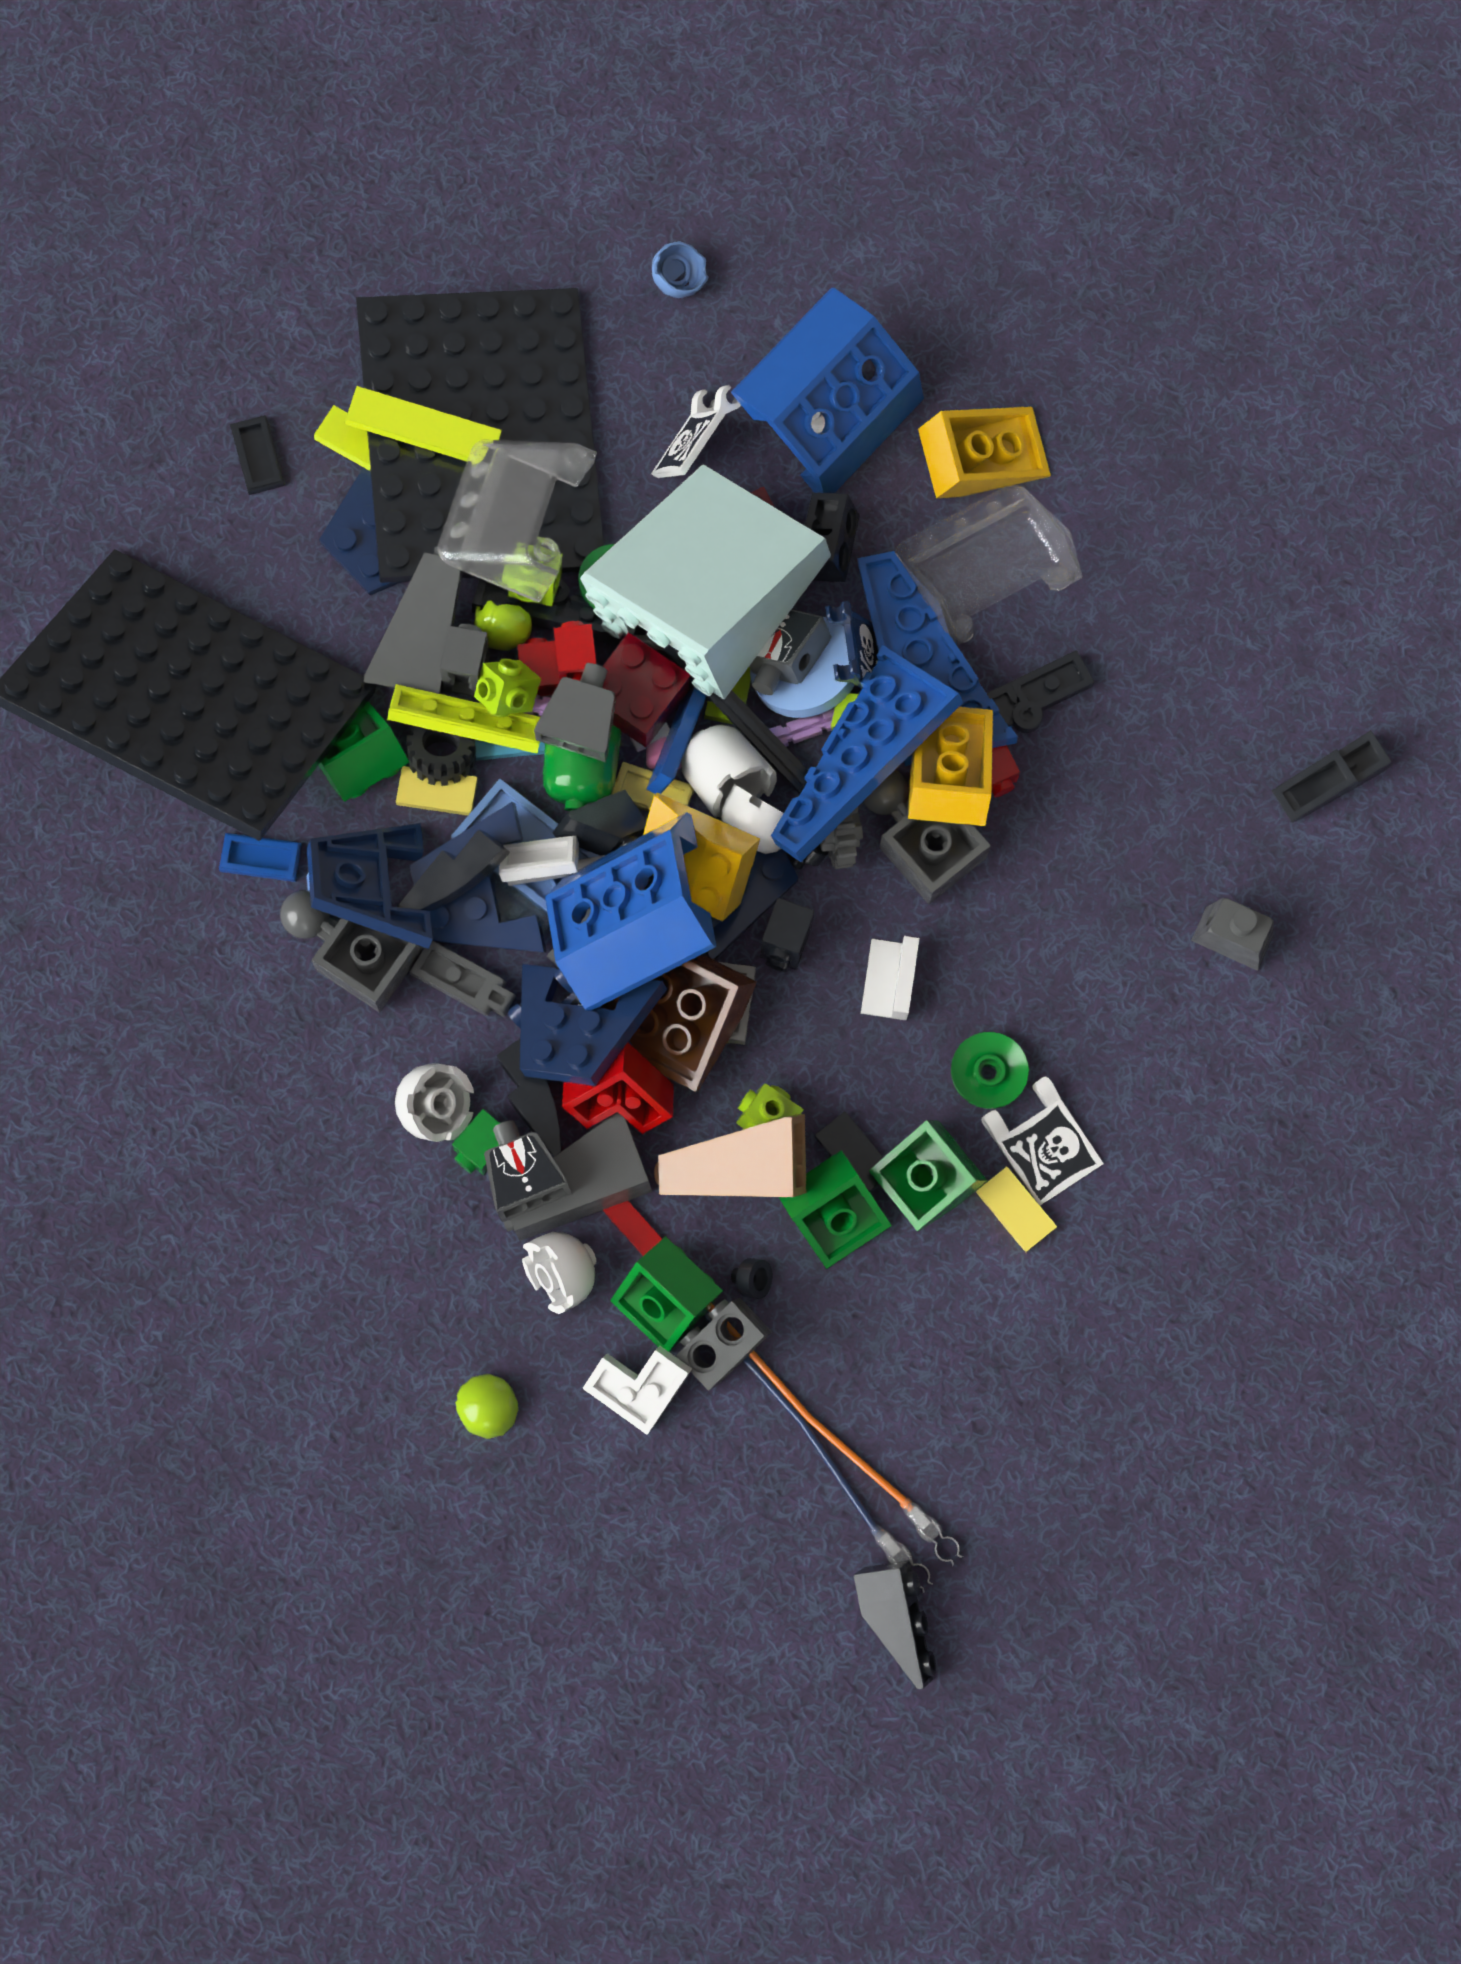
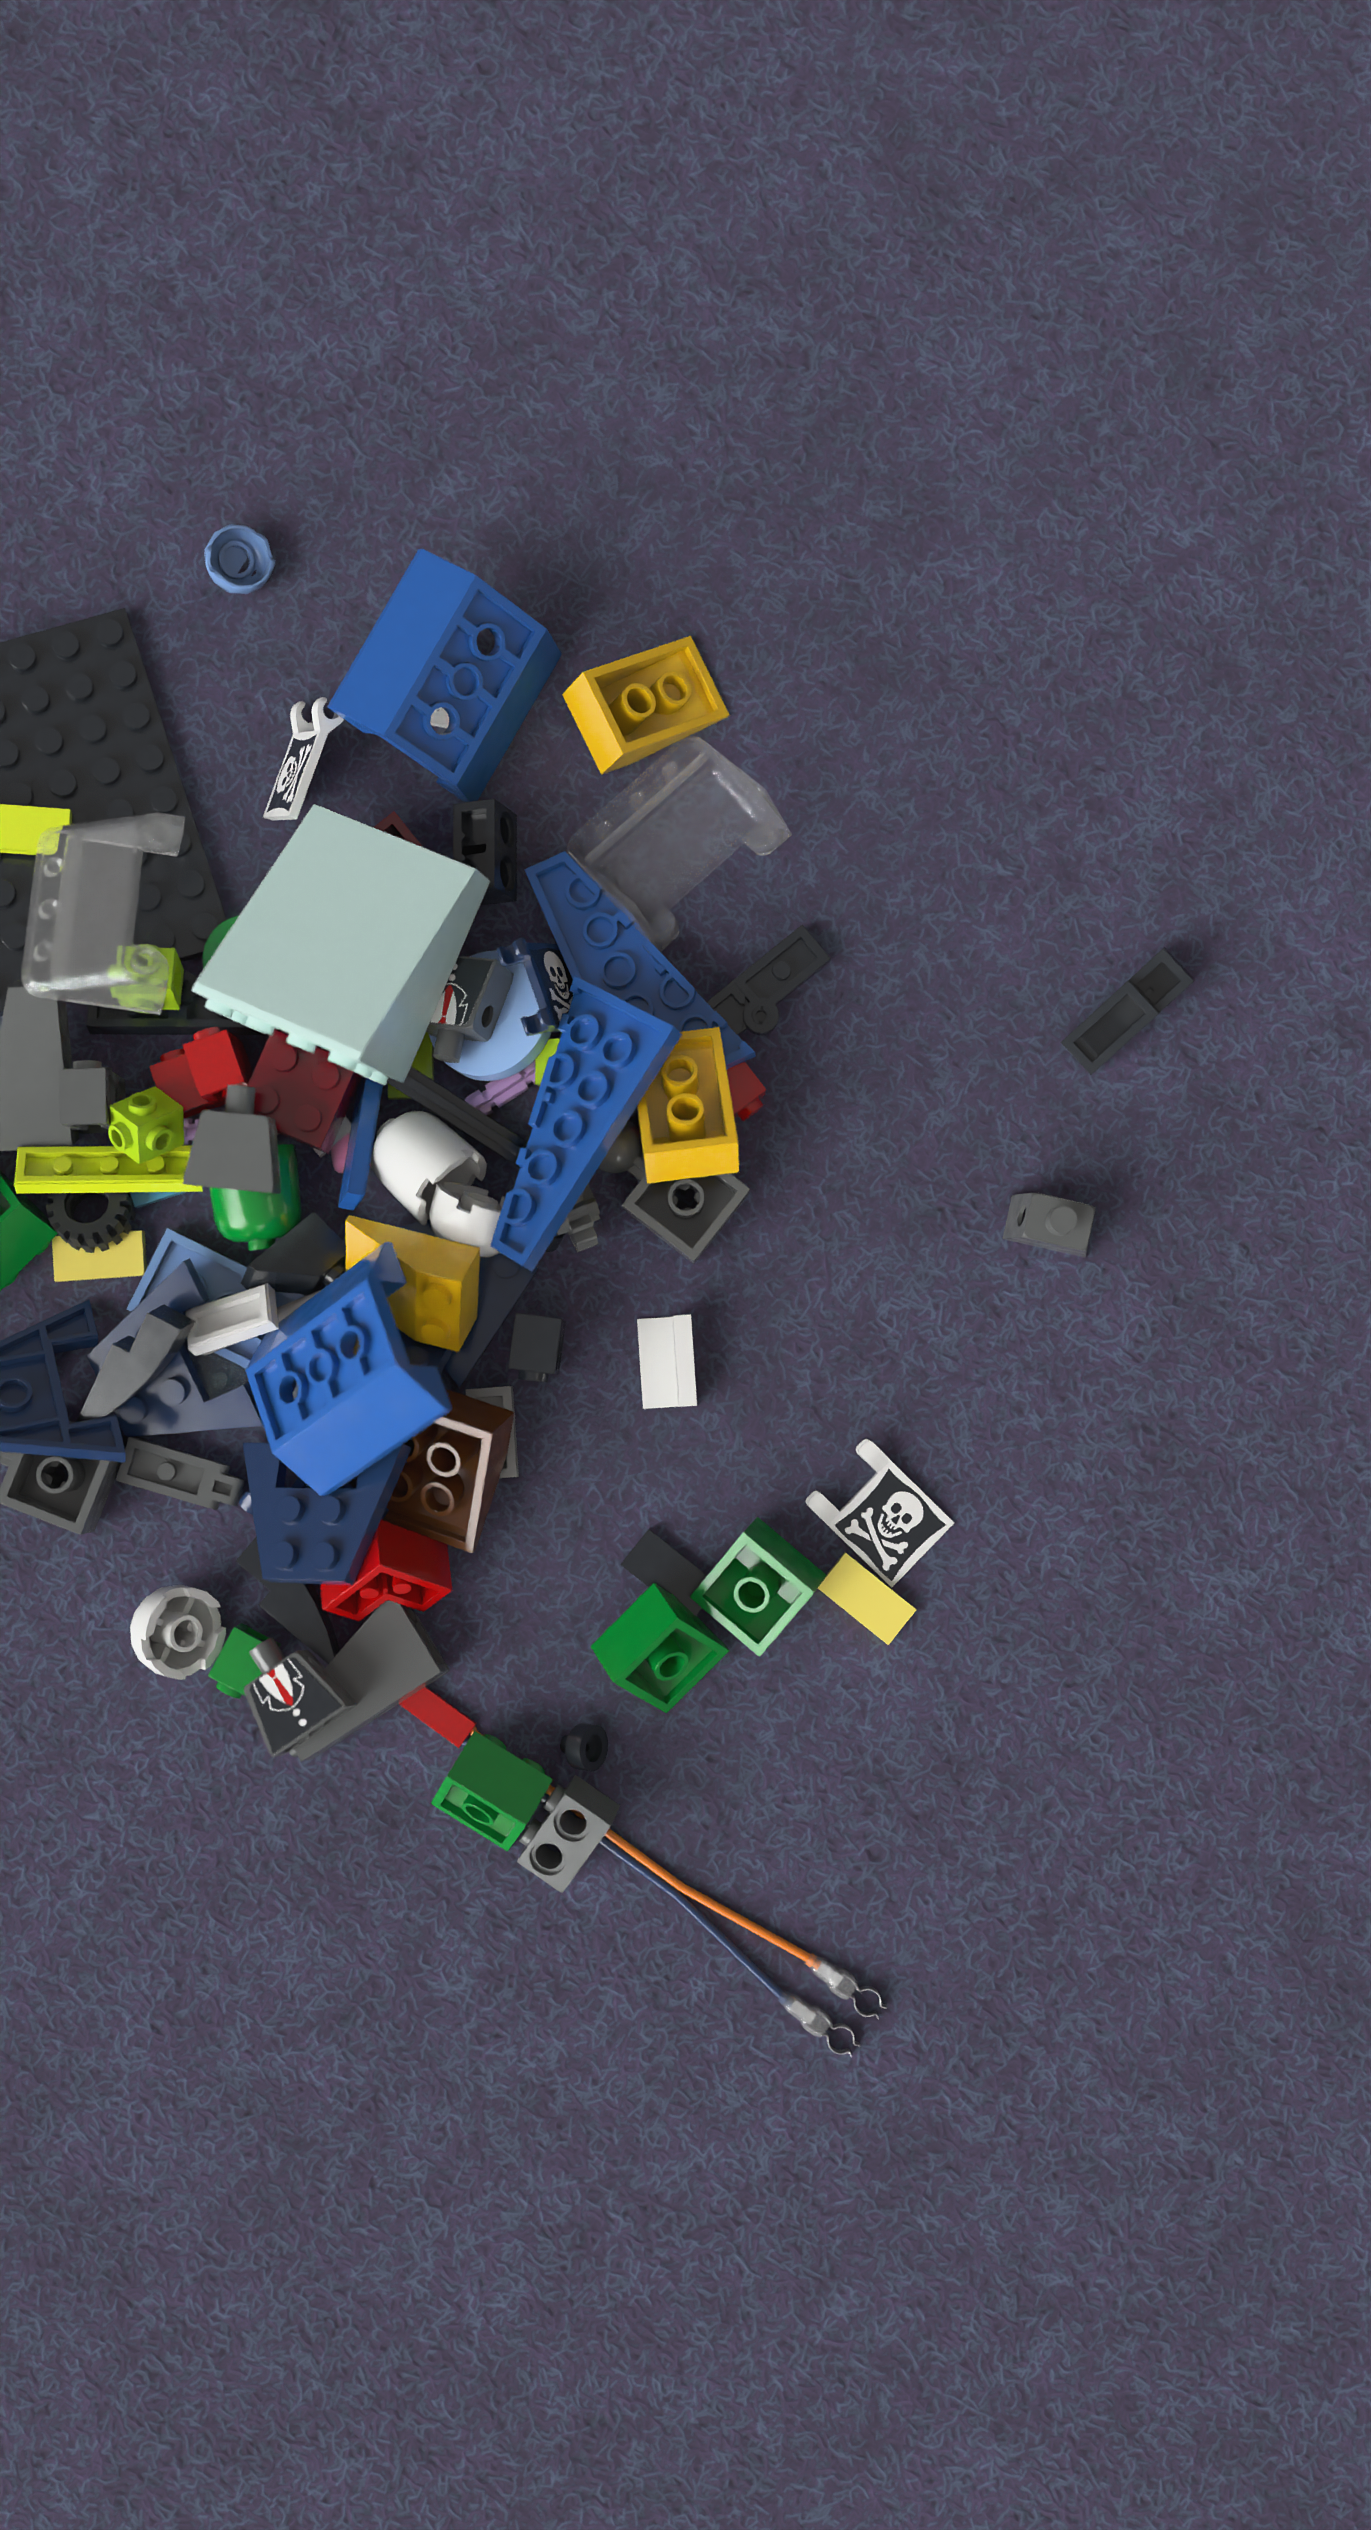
camera: 10 degrees left, 10 degrees up
(487, 1406) = (318, 1956): lime hair -> none
(504, 624) = (127, 1047): lime hair -> none
(563, 1263) = (366, 1787): white cylinder -> none
(635, 781) = (322, 1197): light yellow tile -> none
(639, 1397) = (482, 1912): white plate -> none
(749, 1162) = (540, 1630): slope -> none
(765, 1106) = (578, 1555): lime brick -> none
(892, 1610) = (822, 2094): slope -> none
(994, 1051) = (827, 1452): green dish -> none

